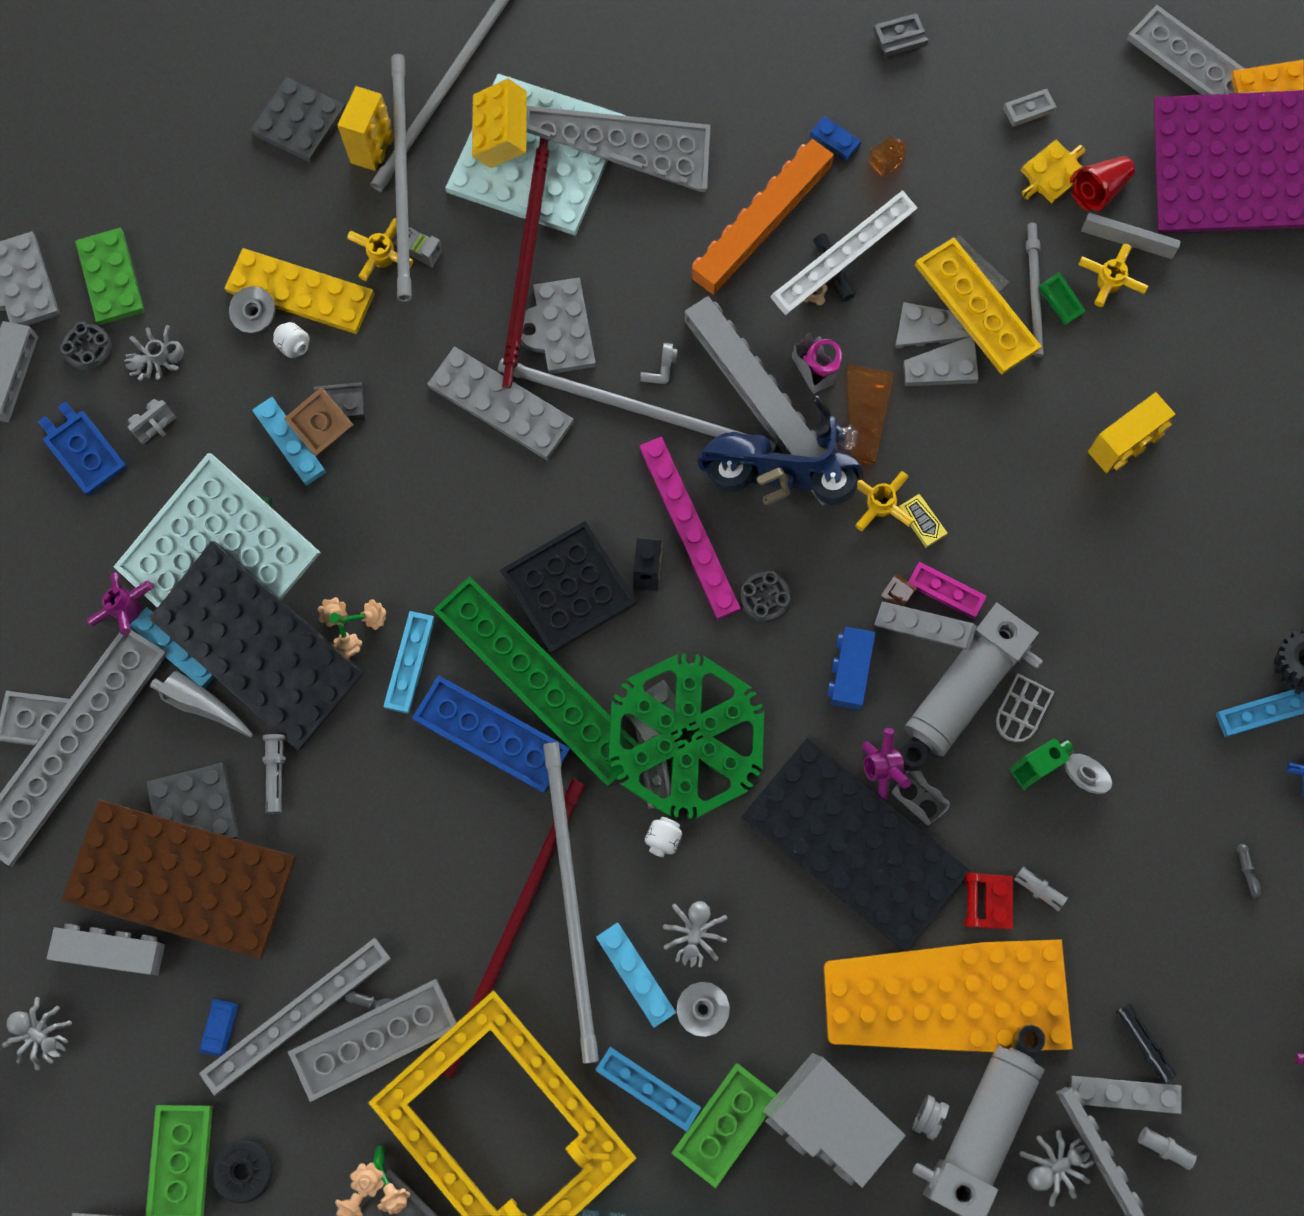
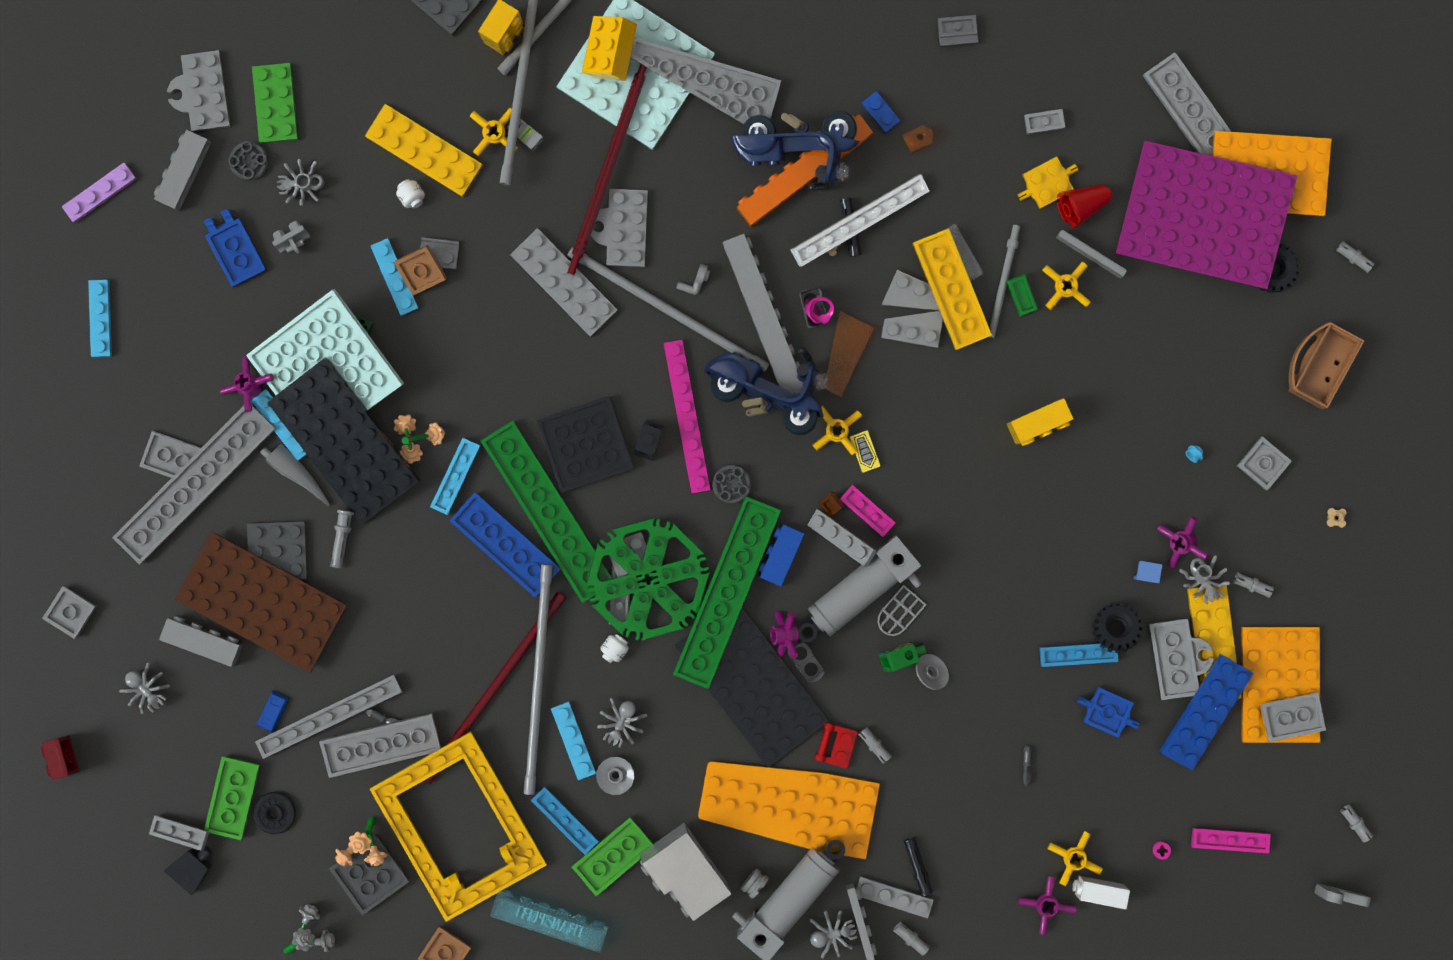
camera: 10 degrees right, 15 degrees up
(245, 302) = (375, 164): light grey dish -> none
(710, 190) = (762, 144): none -> dark blue piece
(794, 733) = (727, 593): none -> green plate

